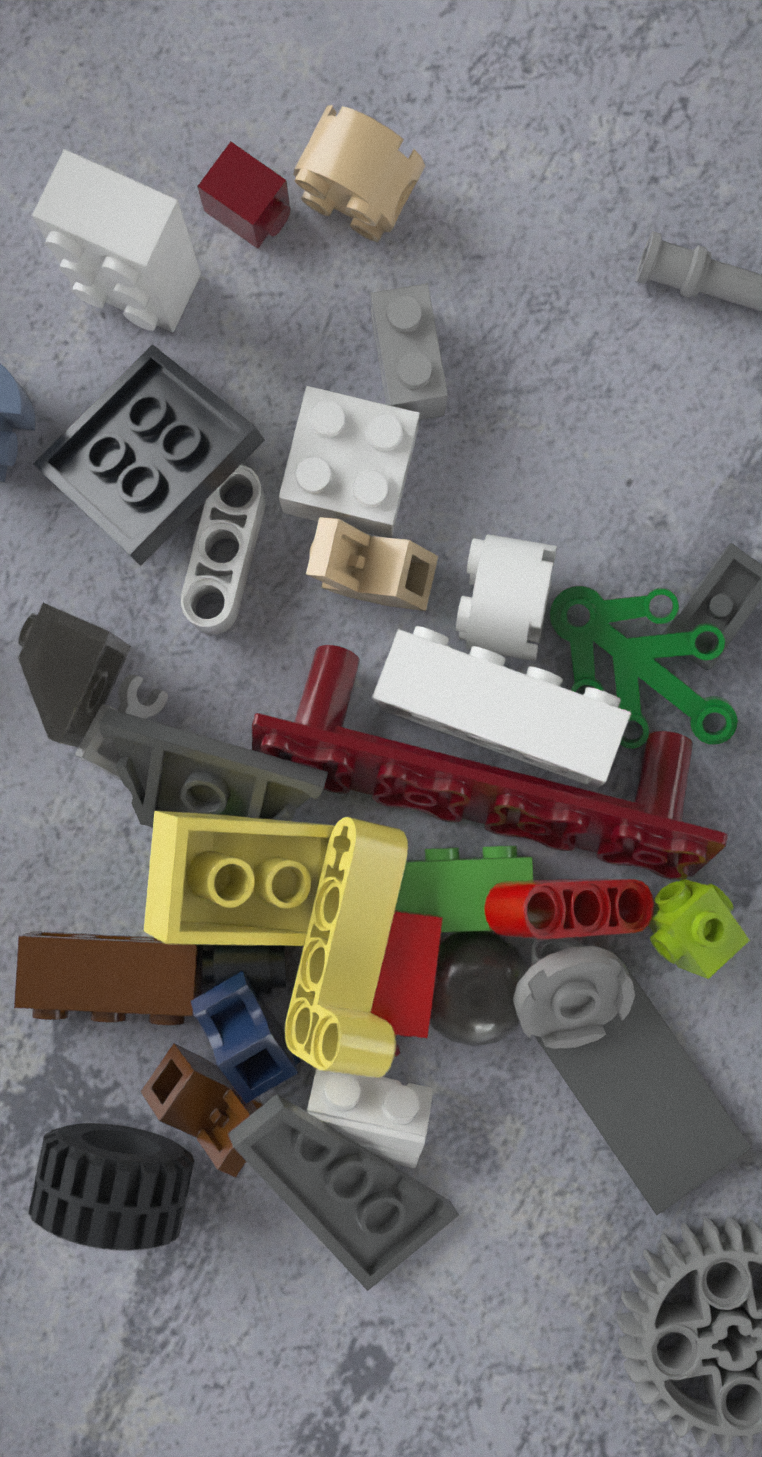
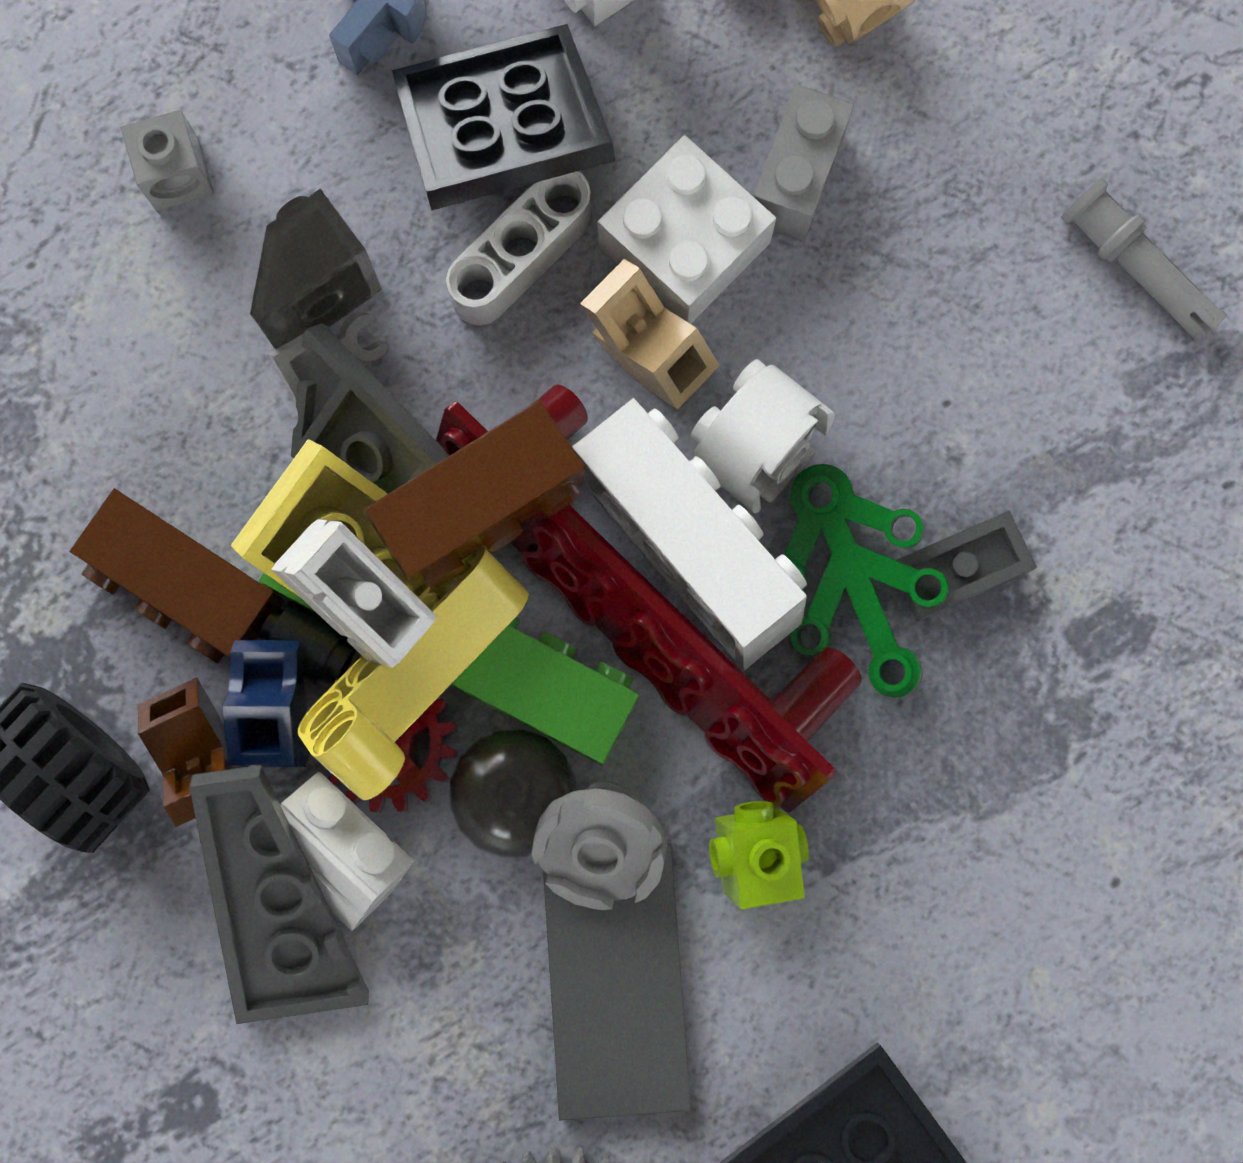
camera: 35 degrees right, 5 degrees down
(274, 919) = (354, 592): none -> white brick
(326, 785) = (478, 497): none -> reddish brown brick
(408, 973) = (453, 731): red tile -> none
(569, 907) = (623, 752): red beam -> none

